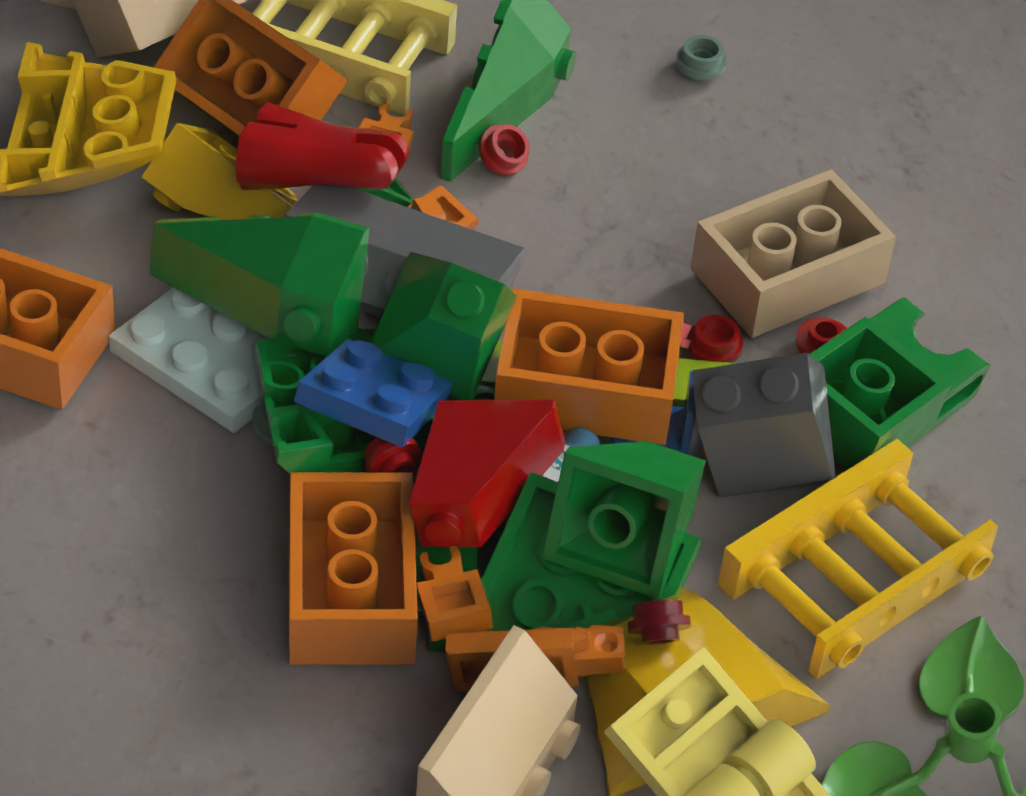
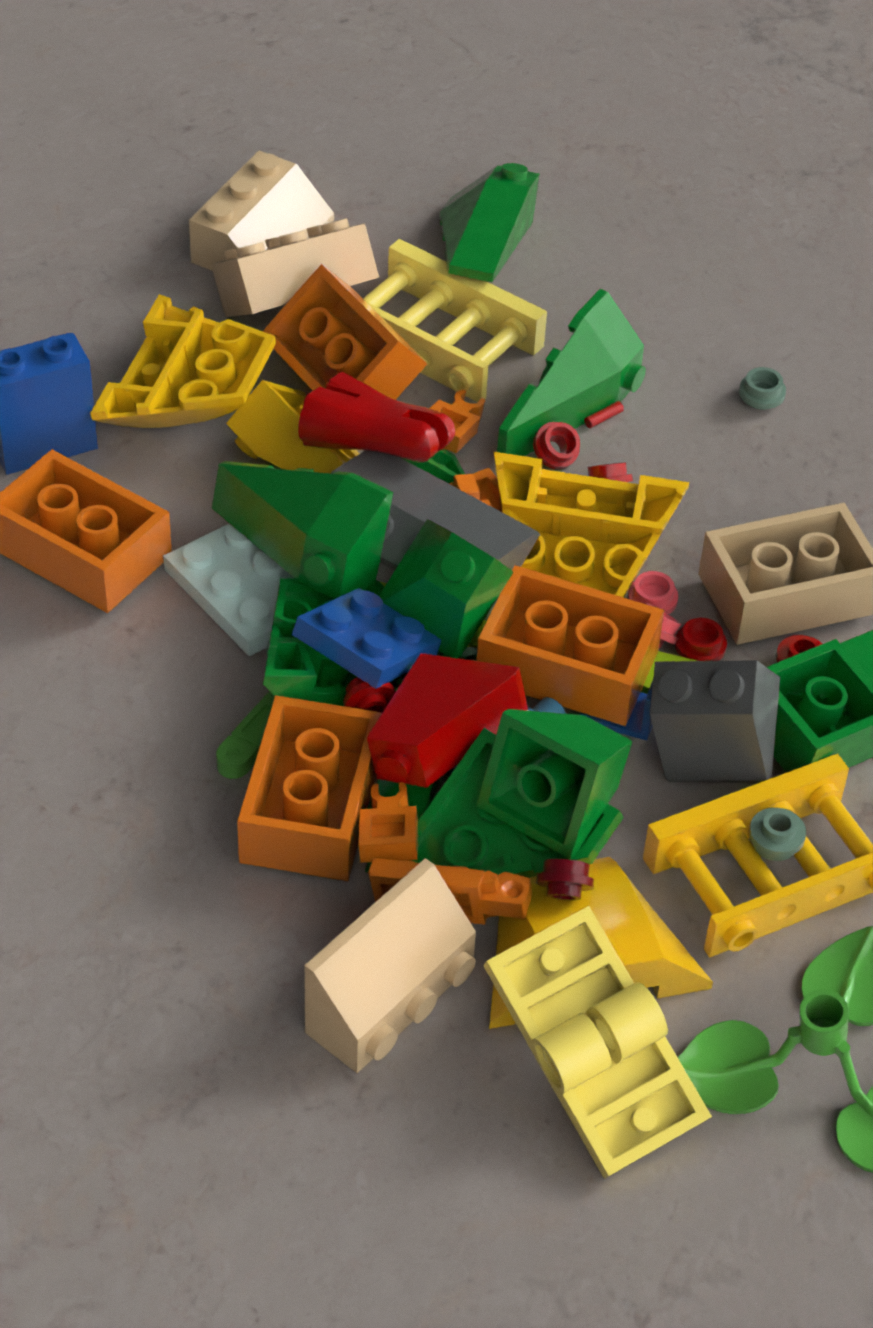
camera: 15 degrees right, 0 degrees up
(263, 523) = (239, 751): none -> bright green piece
(541, 109) = (604, 414): none -> red piece
(568, 178) = (611, 471): none -> red plate
(575, 232) = (587, 525): none -> yellow wedge
(651, 291) = (655, 589): none -> coral plate
(860, 534) = (777, 844): none -> sand green plate

